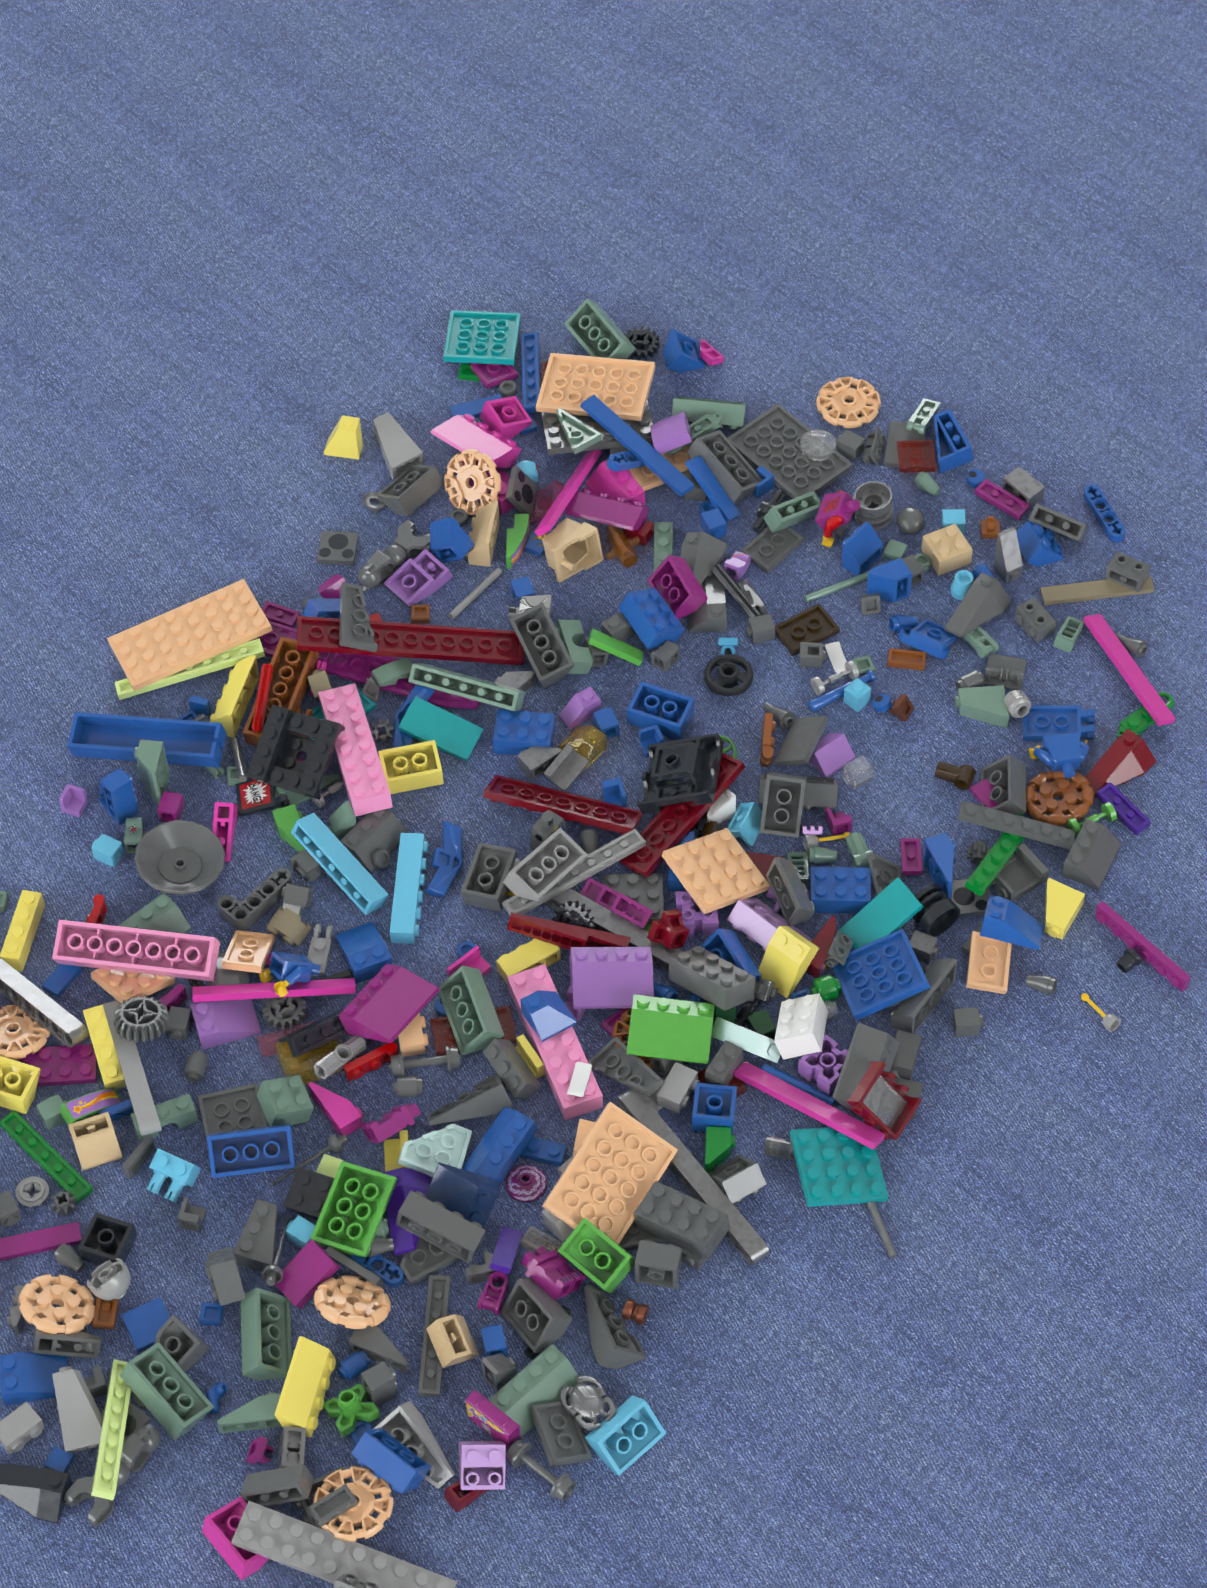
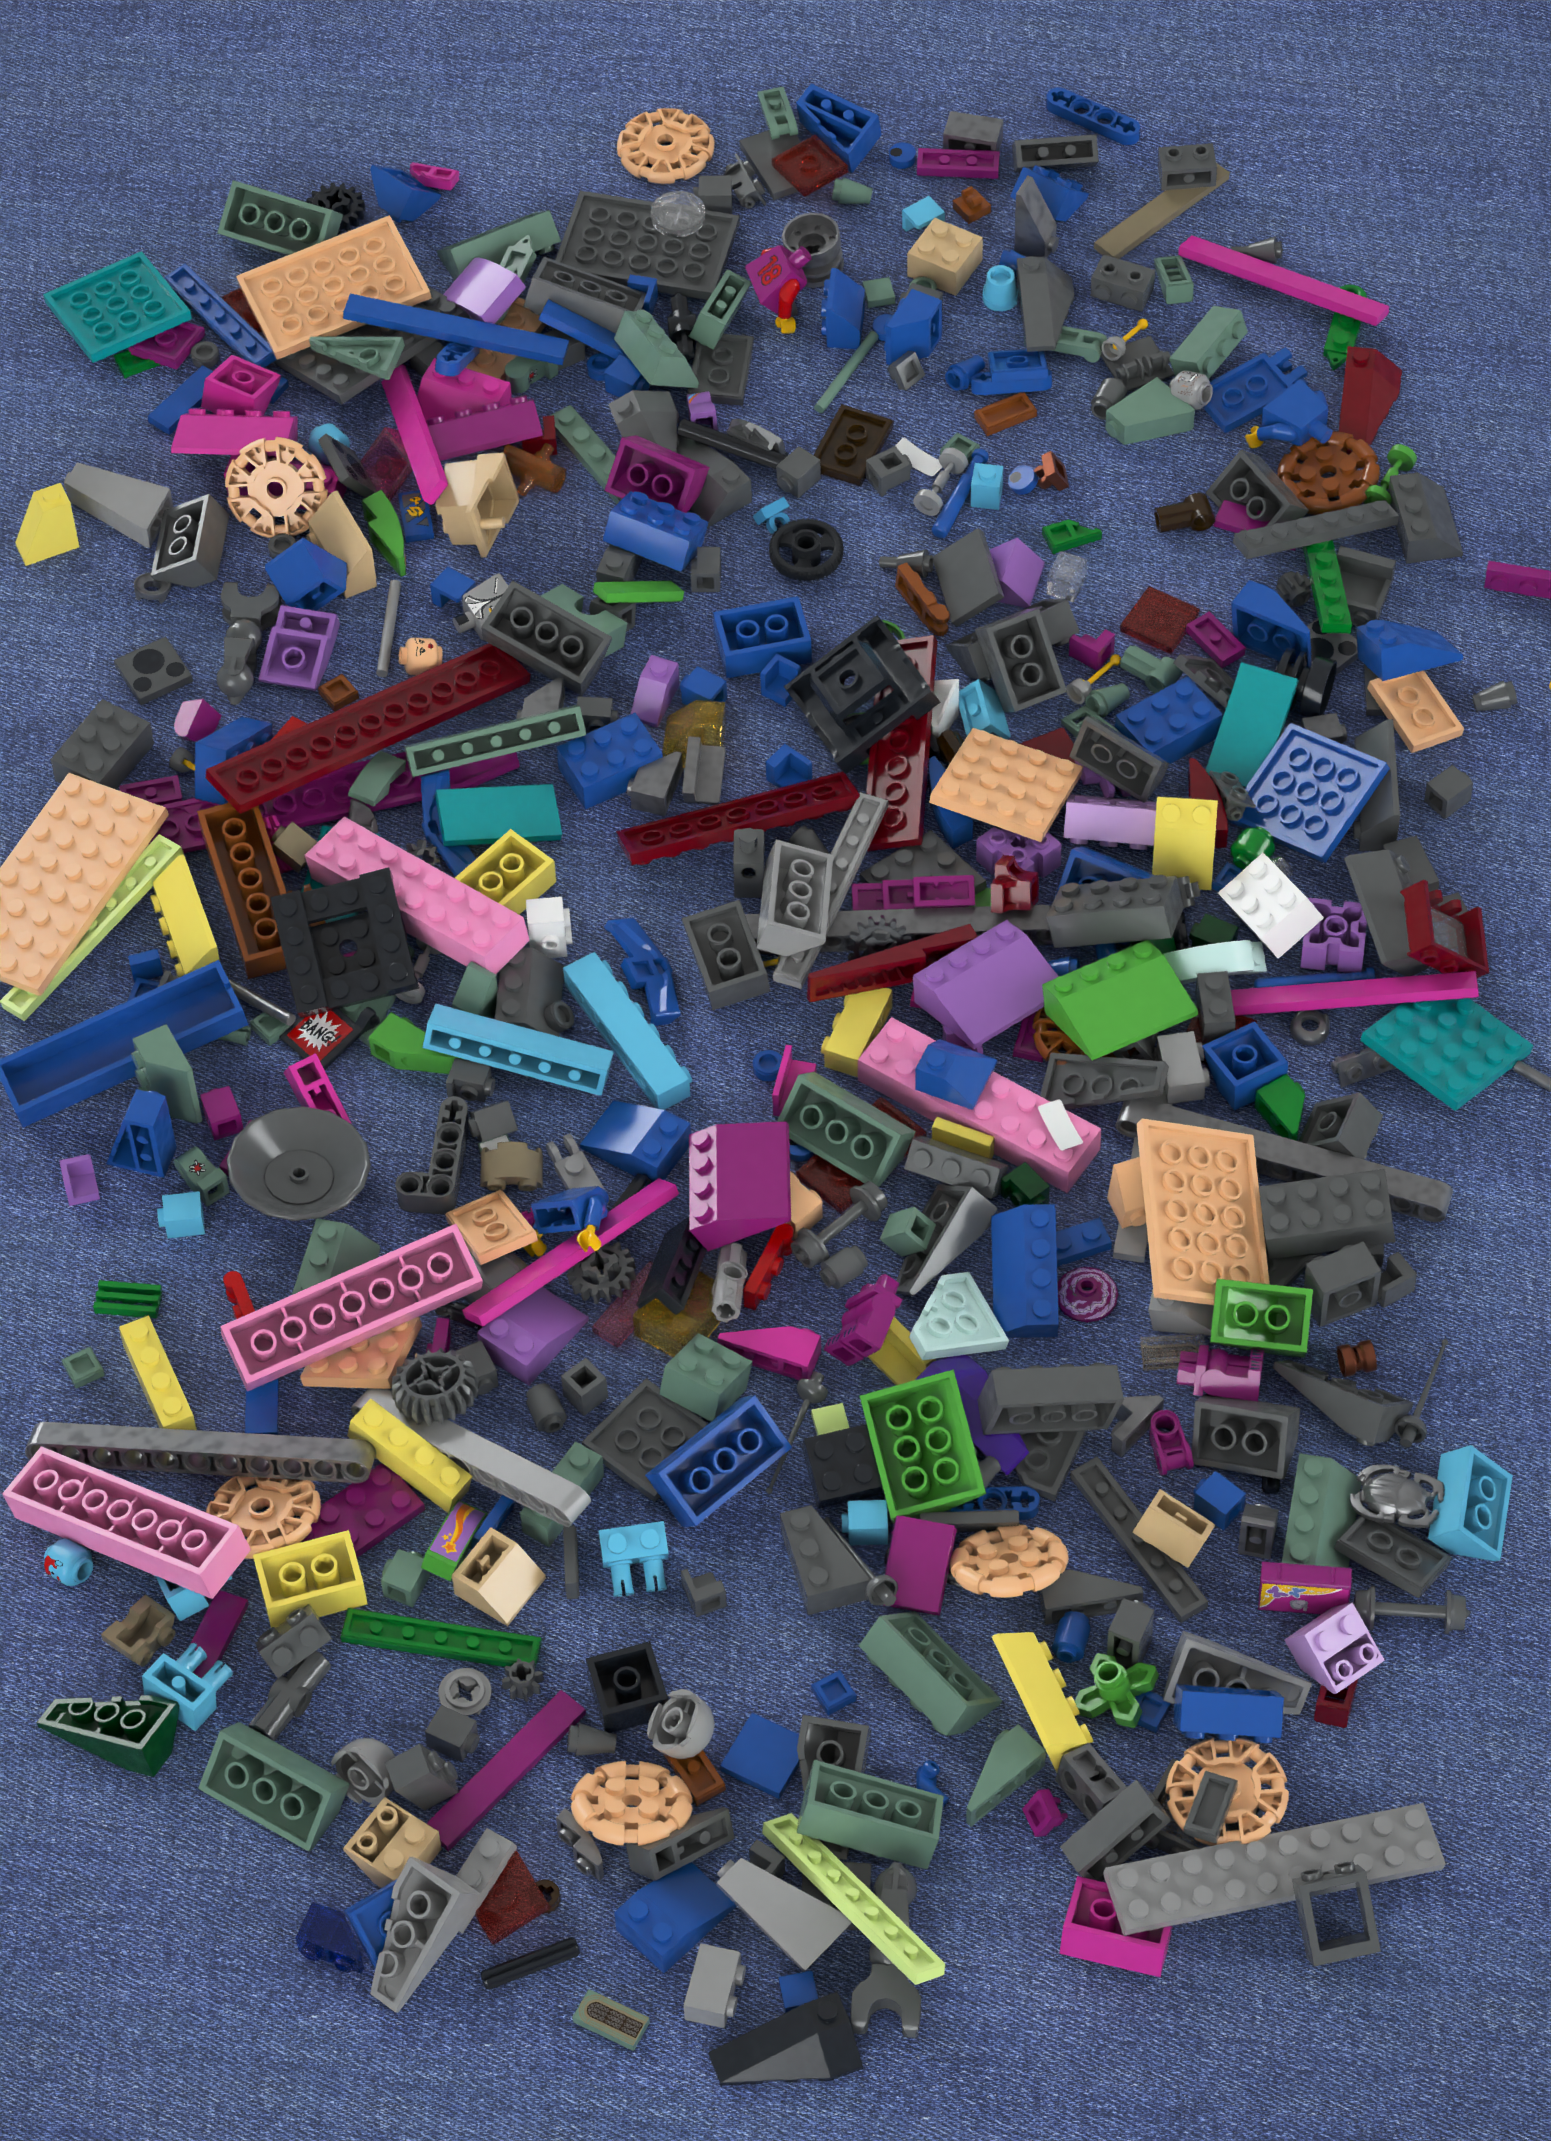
camera: 35 degrees left, 0 degrees up
(37, 869) = (129, 1294): none -> green tile
(221, 1067) = (584, 1386): none -> dark grey brick
(225, 1276) = (827, 1627): dark grey brick -> none
(262, 698) = (239, 901): red axle -> none
(274, 576) = (104, 746): none -> dark grey brick
(354, 620) = (285, 734): dark grey wing -> none
(410, 806) = (549, 926): none -> white brick
(456, 1088) = (907, 1231): none -> sand green brick
(463, 1192) = (1038, 1338): dark blue slope -> none
(475, 617) = (420, 655): none -> light nougat head
(505, 1250) = (1144, 1382): dark purple tile -> none
(537, 702) = (597, 712): none -> dark grey brick
(539, 1104) = (1024, 1187): none -> dark green brick
(631, 1369) = (1412, 1428): none -> dark grey sword
(660, 490) = (526, 371): none -> sand green leg
(693, 1282) = (1396, 1281): none -> dark grey panel
(736, 517) = (653, 351): none -> sand green slope
(774, 1117) = (1306, 1037): none -> flat silver piece
(812, 830) = (1079, 670): lavender tile -> none
(882, 749) = (1068, 535): none -> green tile
(890, 826) = (1159, 619): none -> clear red tile
(910, 520) = (867, 246): dark grey hair -> none
(997, 654) = (1115, 351): none -> light grey hinge
(1052, 683) = (1210, 342): none -> sand green brick
(1061, 908) = (1441, 598): light yellow slope -> none
(1125, 810) = (1427, 448): dark purple tile -> none

